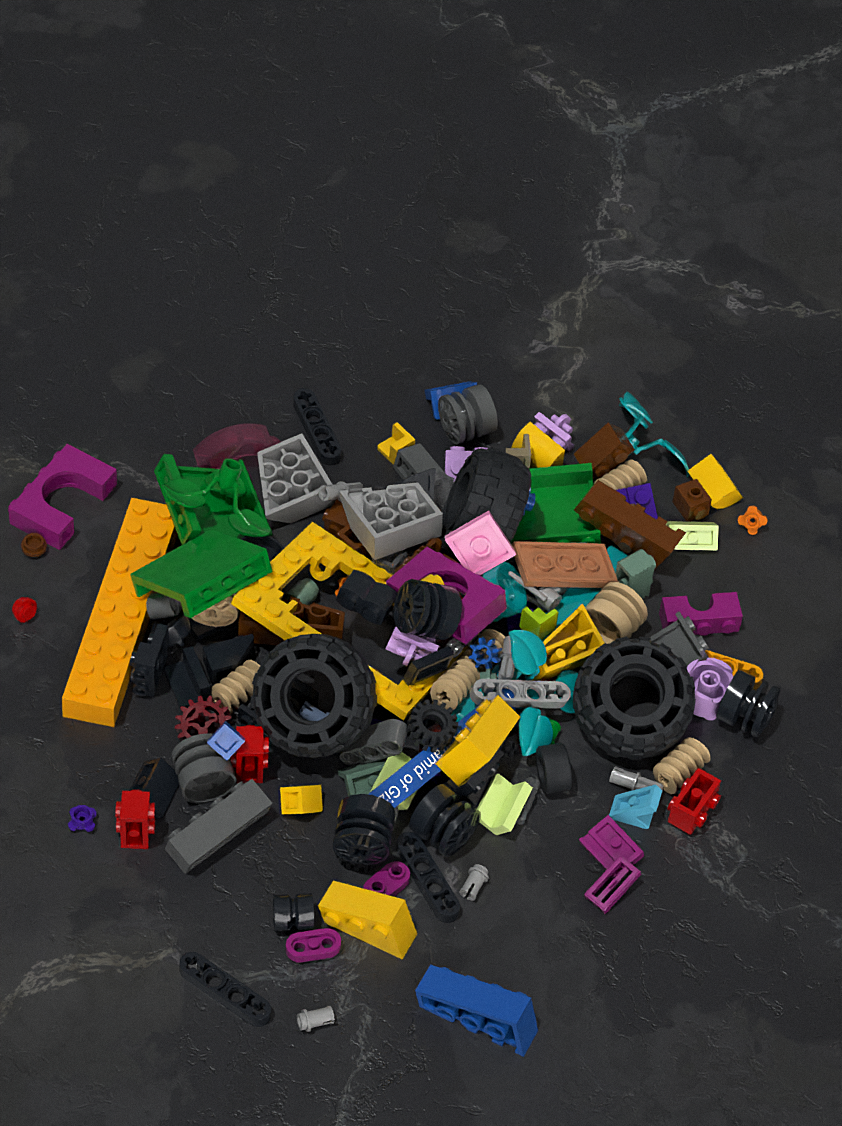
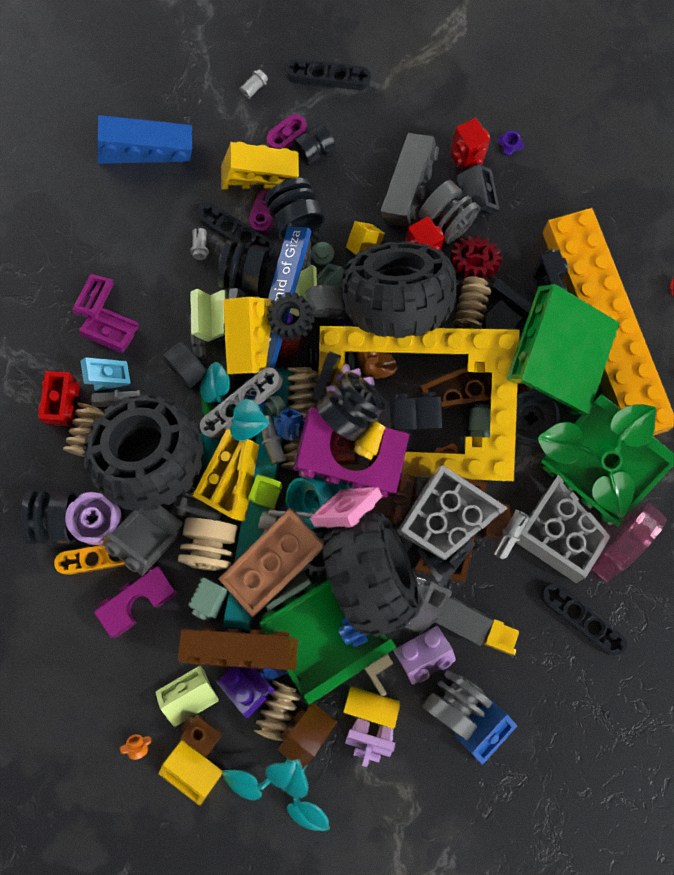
camera: 155 degrees right, 25 degrees up
(226, 740) = (441, 215): tile -> none

